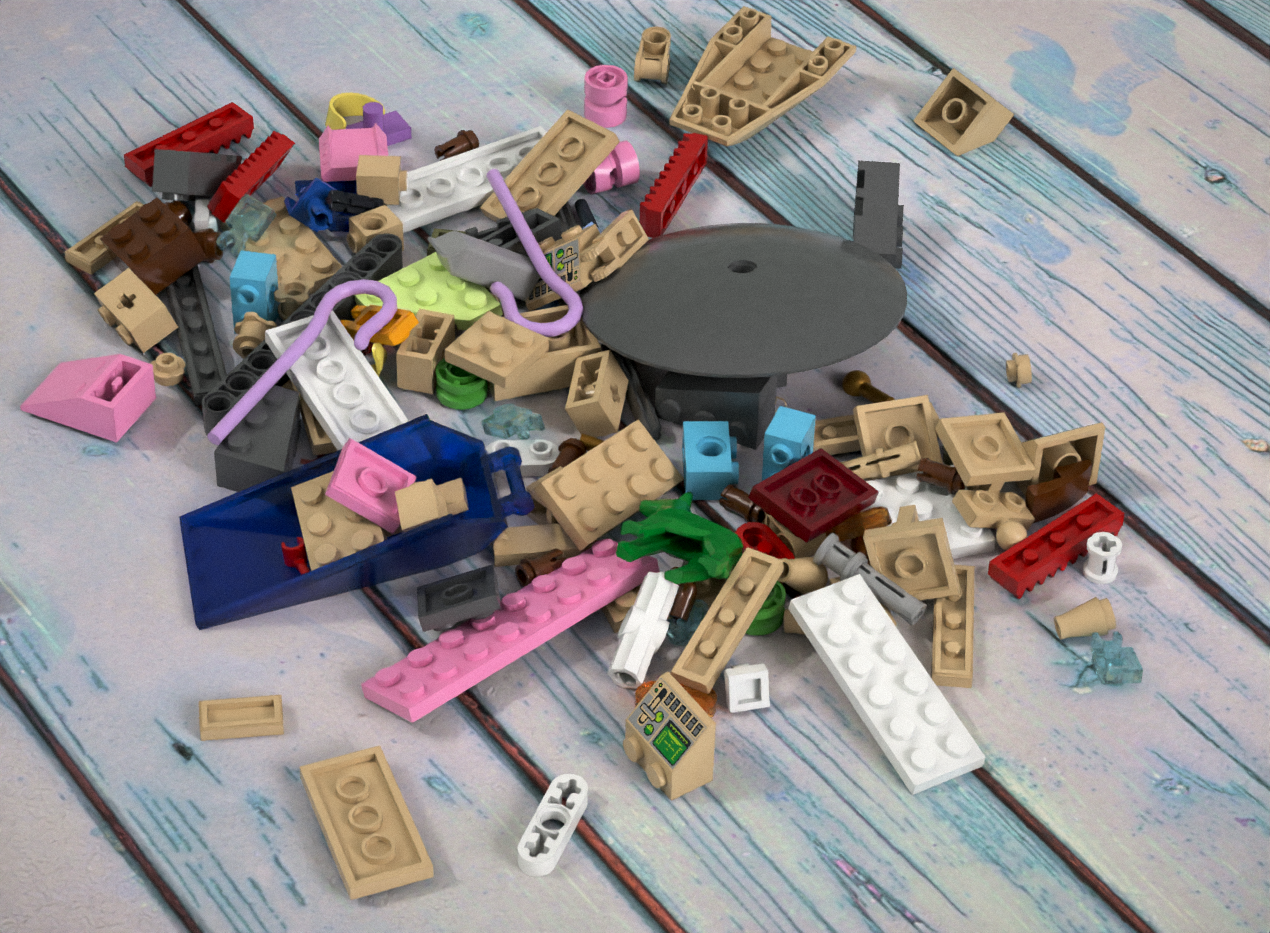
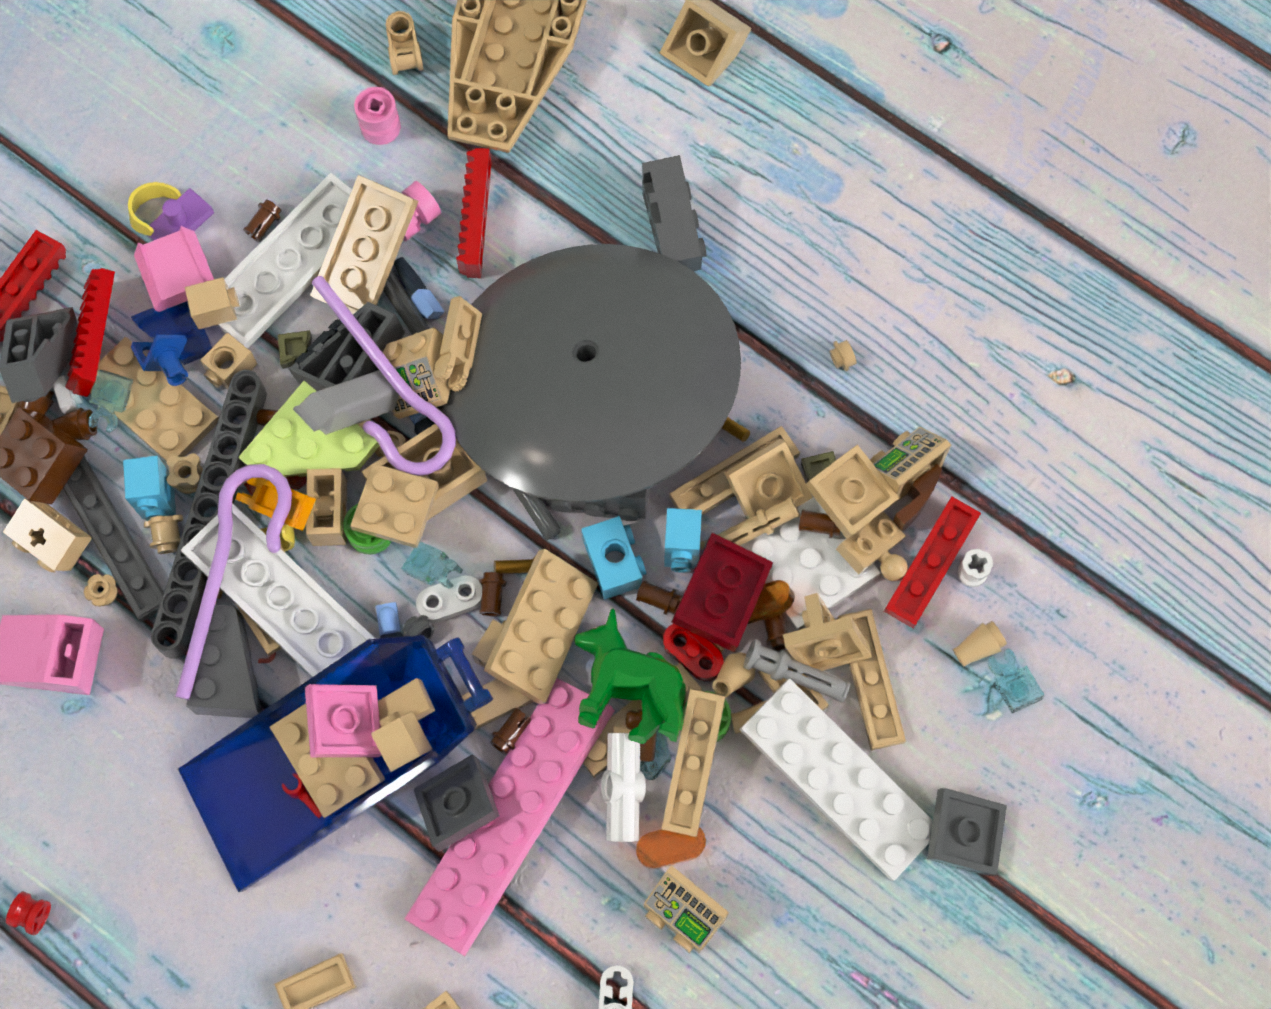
camera: 15 degrees left, 30 degrees up
(351, 203) = (199, 343): black axle -> none
(597, 394) = (494, 516): tan brick -> none
(746, 687) = (725, 817): white tile -> none
(1013, 760) = (967, 832): none -> dark grey plate

